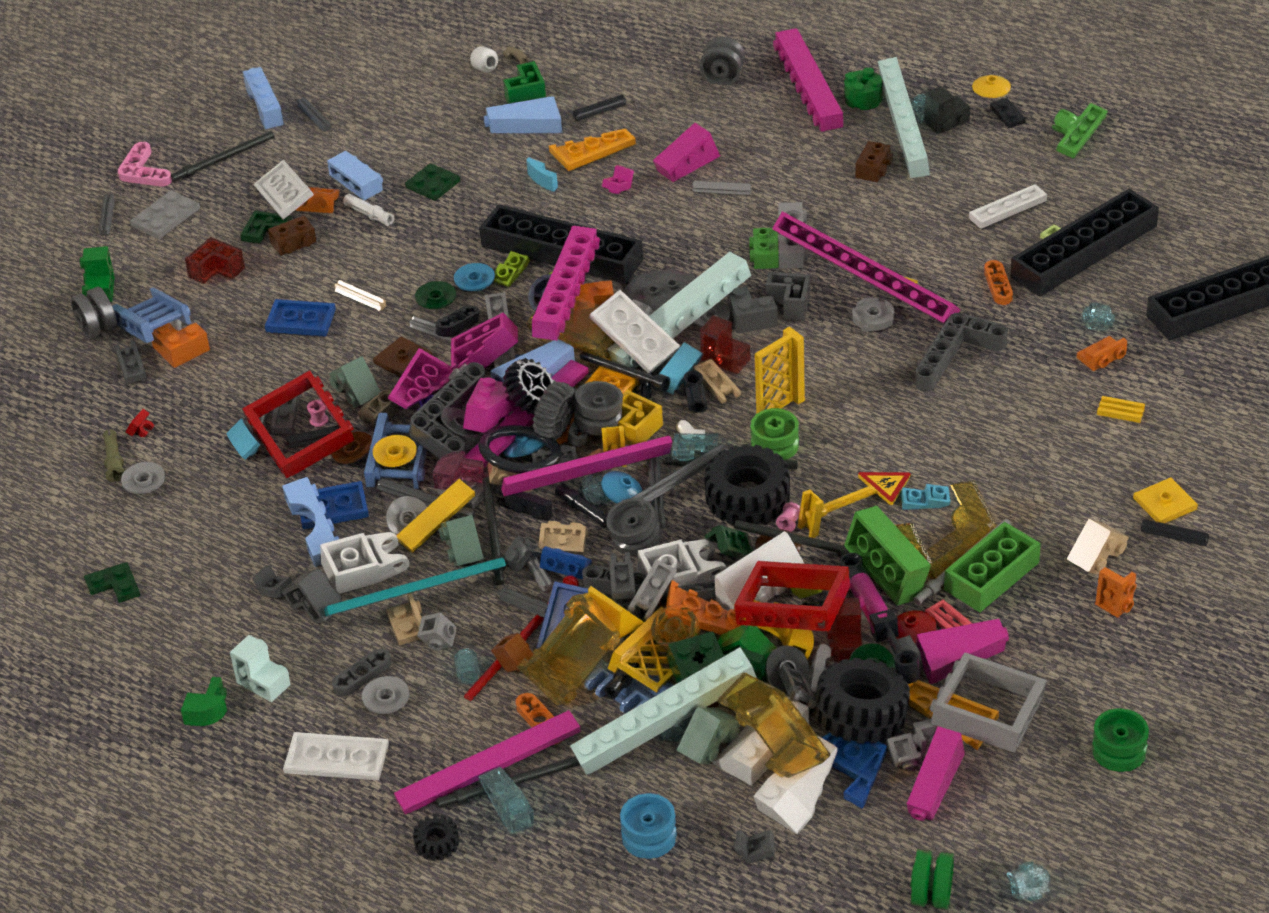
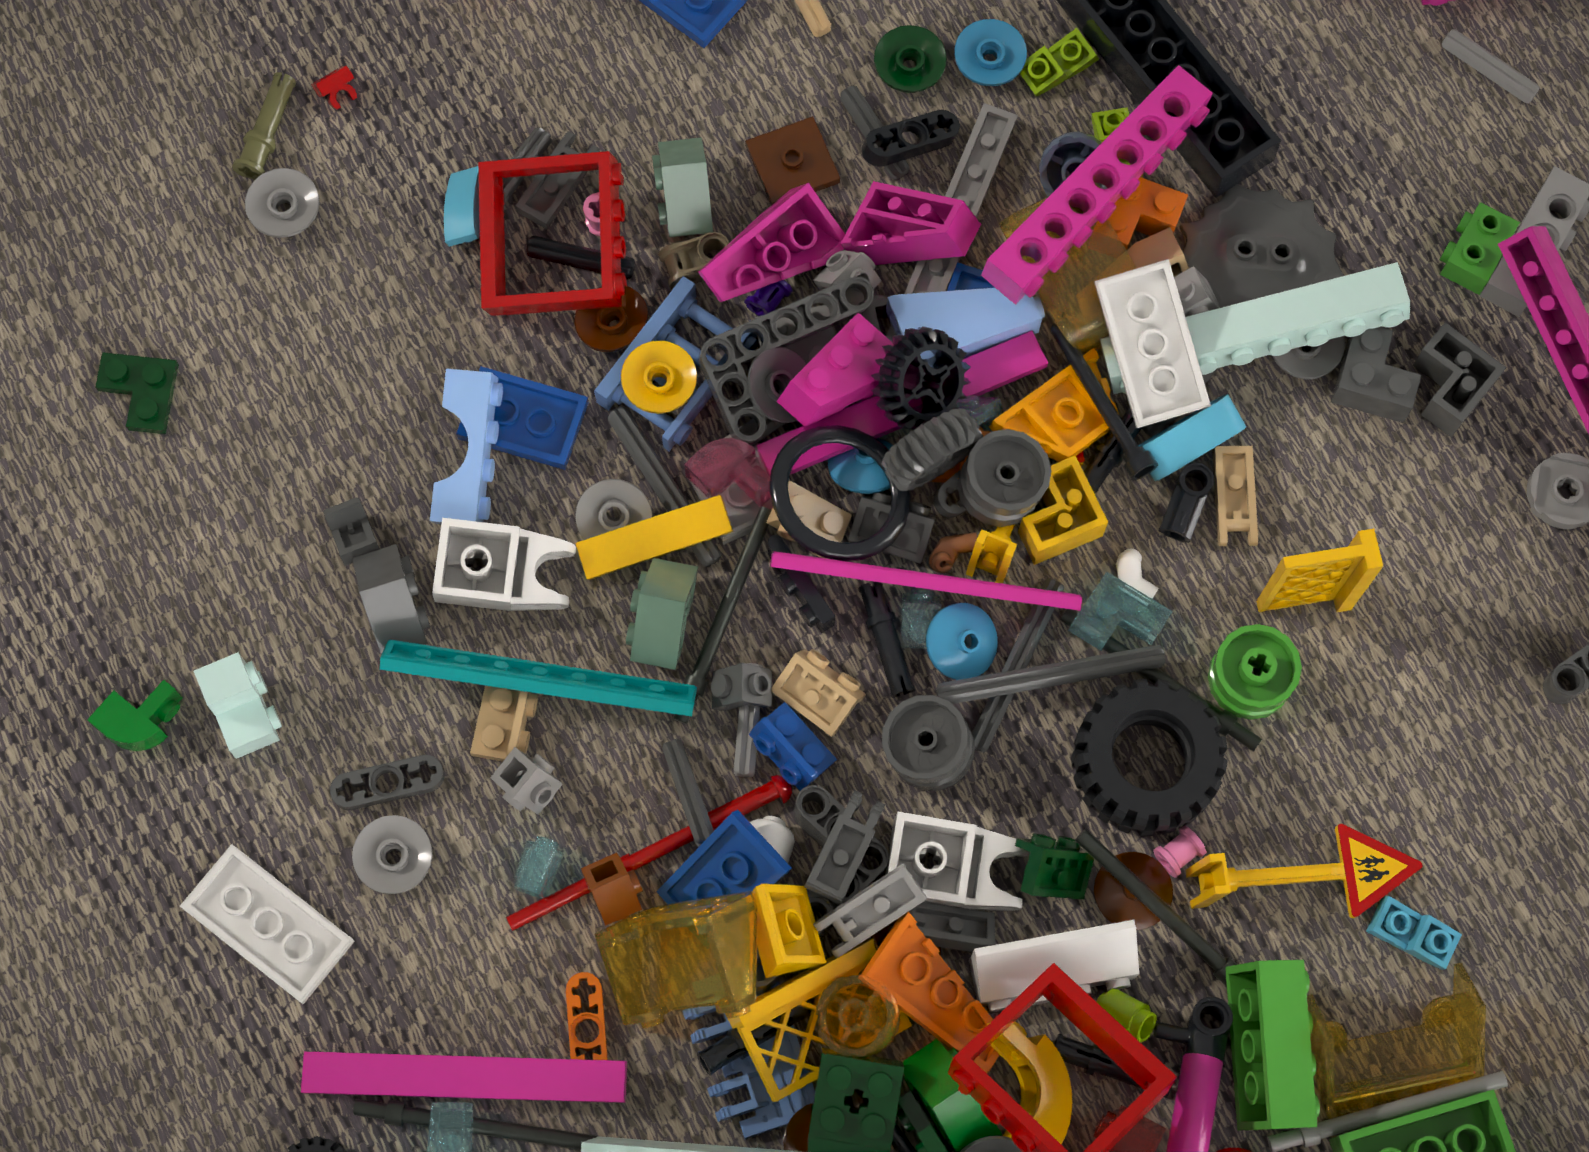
camera: 25 degrees right, 30 degrees up
(719, 345) = (1280, 436): clear red brick -> none

